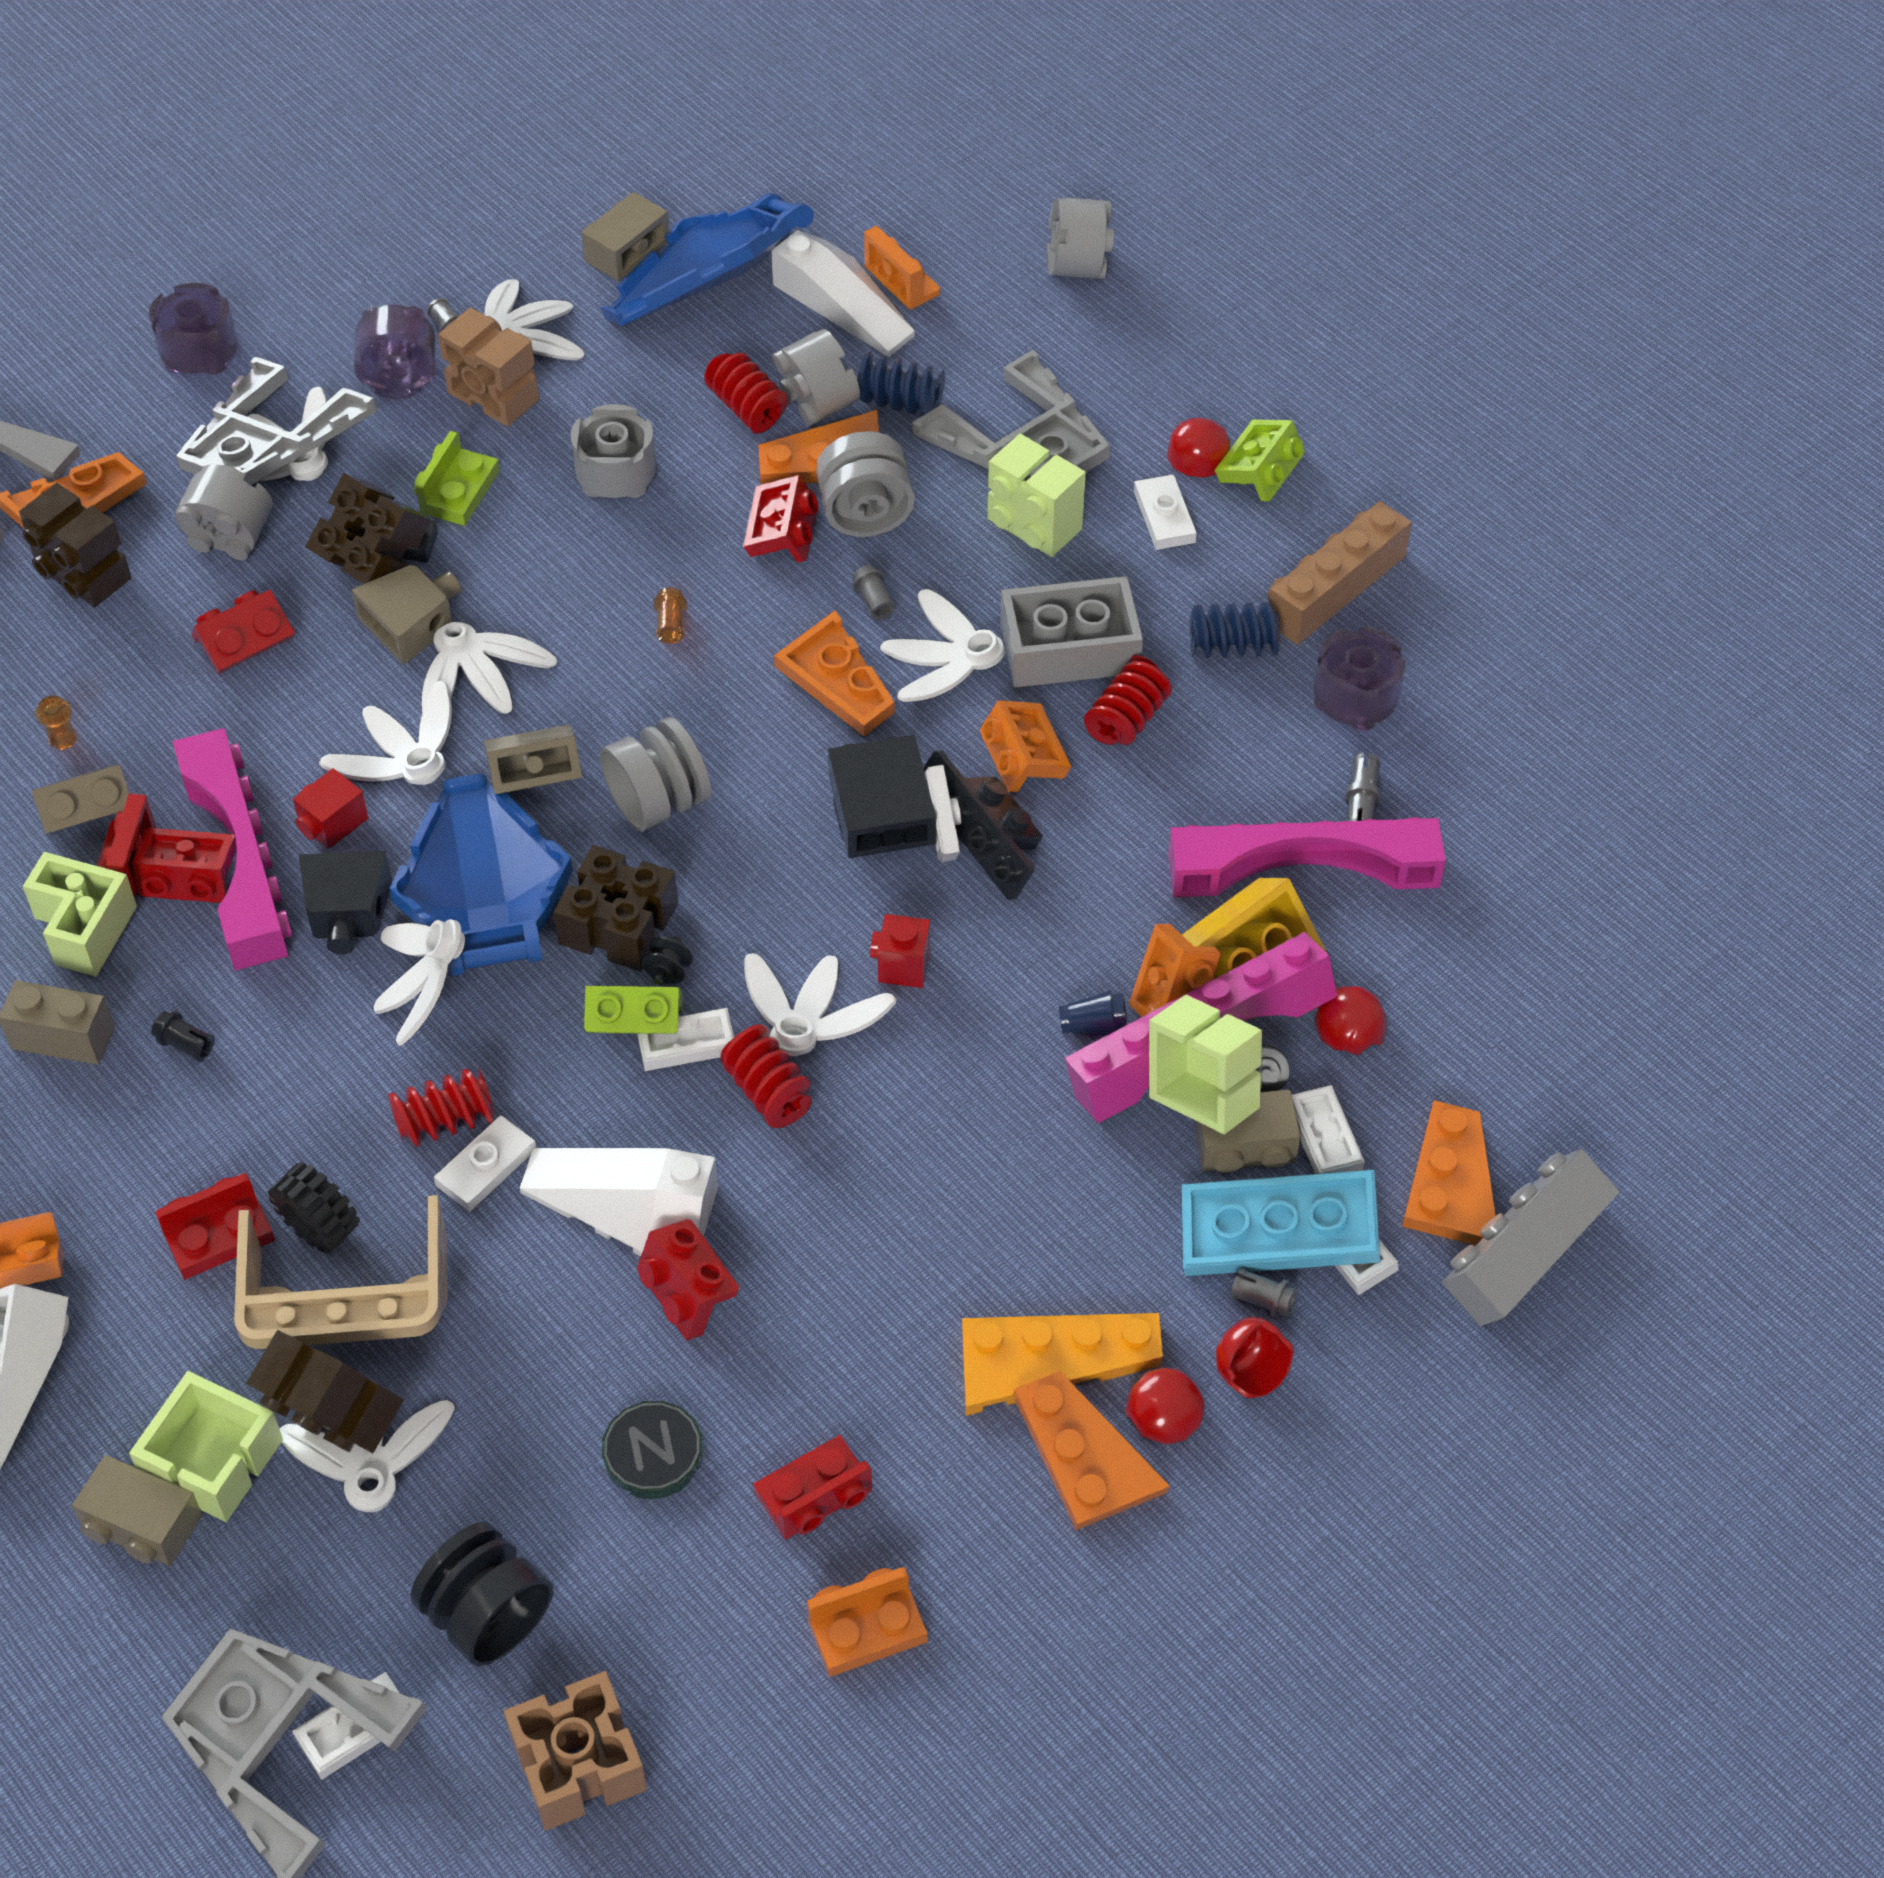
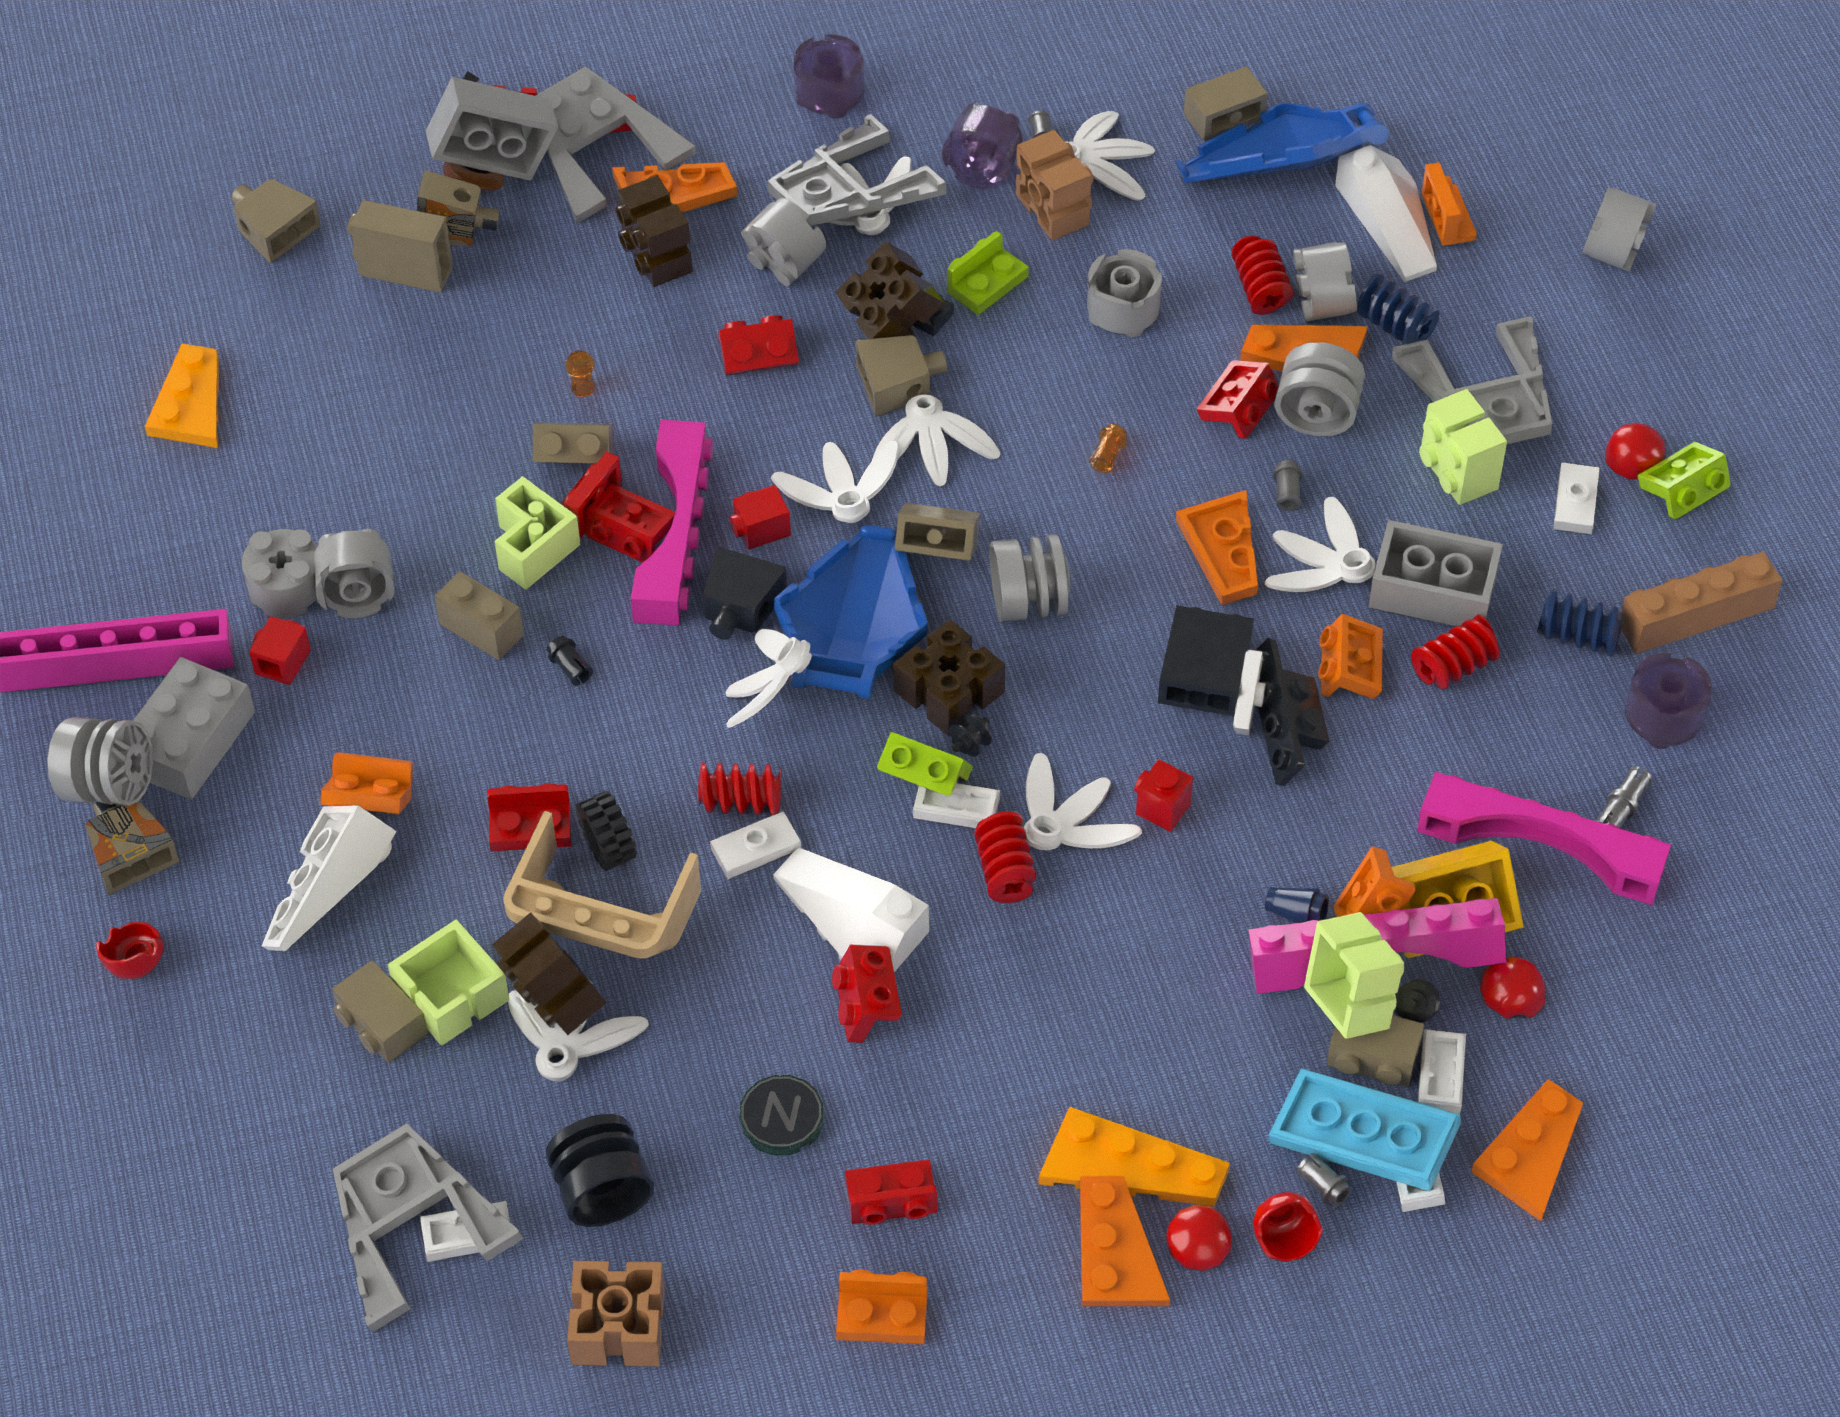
camera: 25 degrees right, 0 degrees up
(1529, 1236) = (1568, 1218): light grey brick -> none

